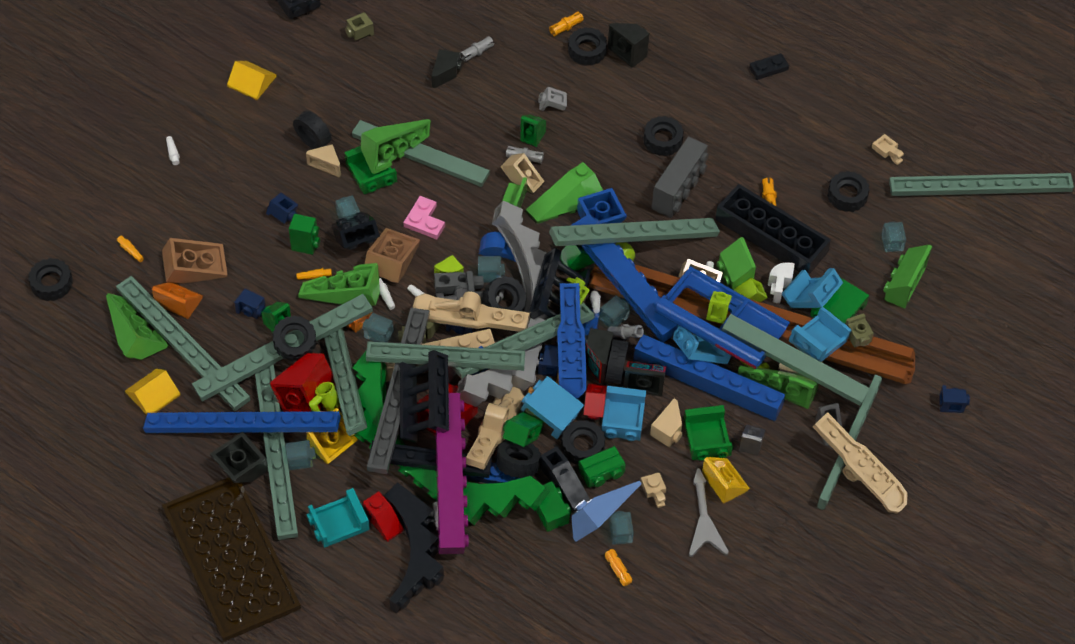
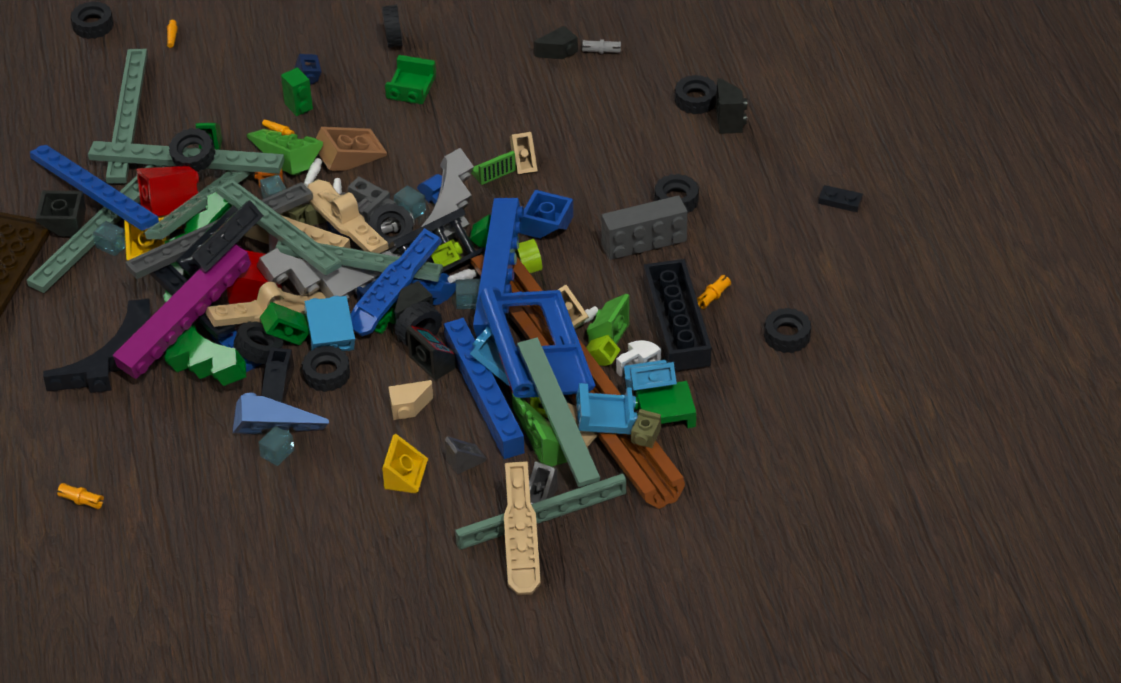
camera: 45 degrees right, 10 degrees down
(132, 331) = (103, 86): bright green wedge -> none
(153, 391) = (68, 134): yellow slope -> none
(176, 298) = (160, 82): orange slope -> none
(193, 261) = (201, 65): medium nougat slope -> none
(250, 304) = (202, 113): dark blue brick -> none
(324, 159) = (383, 54): tan slope -> none
(327, 396) = (168, 203): lime piece -> none
(338, 519) = (83, 300): teal panel -> none
(346, 207) = (354, 99): clear light blue brick -> none
(355, 230) = (337, 111): black brick -> none
(382, 516) = (113, 314): red slope -> none
(388, 142) = (435, 66): bright green wedge -> none
(421, 221) = (406, 138): bright pink plate -> none
(437, 159) = (464, 95): sand green tile -> none
(448, 265) = (380, 179): lime brick -> none
(532, 129) = (570, 124): green slope -> none
(533, 156) = (544, 142): light grey pin -> none
(552, 98) = (617, 115): light grey bracket -> none
(553, 510) = (250, 384): green brick -> none
(564, 194) = (554, 181): bright green wedge -> none
(566, 23) = (700, 69): light orange pin -> none
(595, 401) = (372, 344): red slope -> none
(602, 467) = (317, 394): green brick -> none
(618, 567) = (241, 473): light orange axle -> none
(623, 413) = (385, 369): dark azure panel -> none
(626, 331) = (455, 309): light grey pin -> none
(633, 231) = (544, 237): sand green plate -> none
(654, 487) = (341, 437): tan plate -> none
(705, 529) = (344, 495): light grey piece -> none
(707, 432) = (433, 425): green panel -> none
(718, 307) = (546, 330): lime bracket -> none
(887, 147) = (868, 318): tan plate -> none
(893, 236) = (782, 387): clear light blue brick -> none
(907, 275) = (754, 424): bright green slope -> none
(953, 400) = (673, 542): dark blue brick -> none
(981, 184) = (923, 400): sand green plate -> none

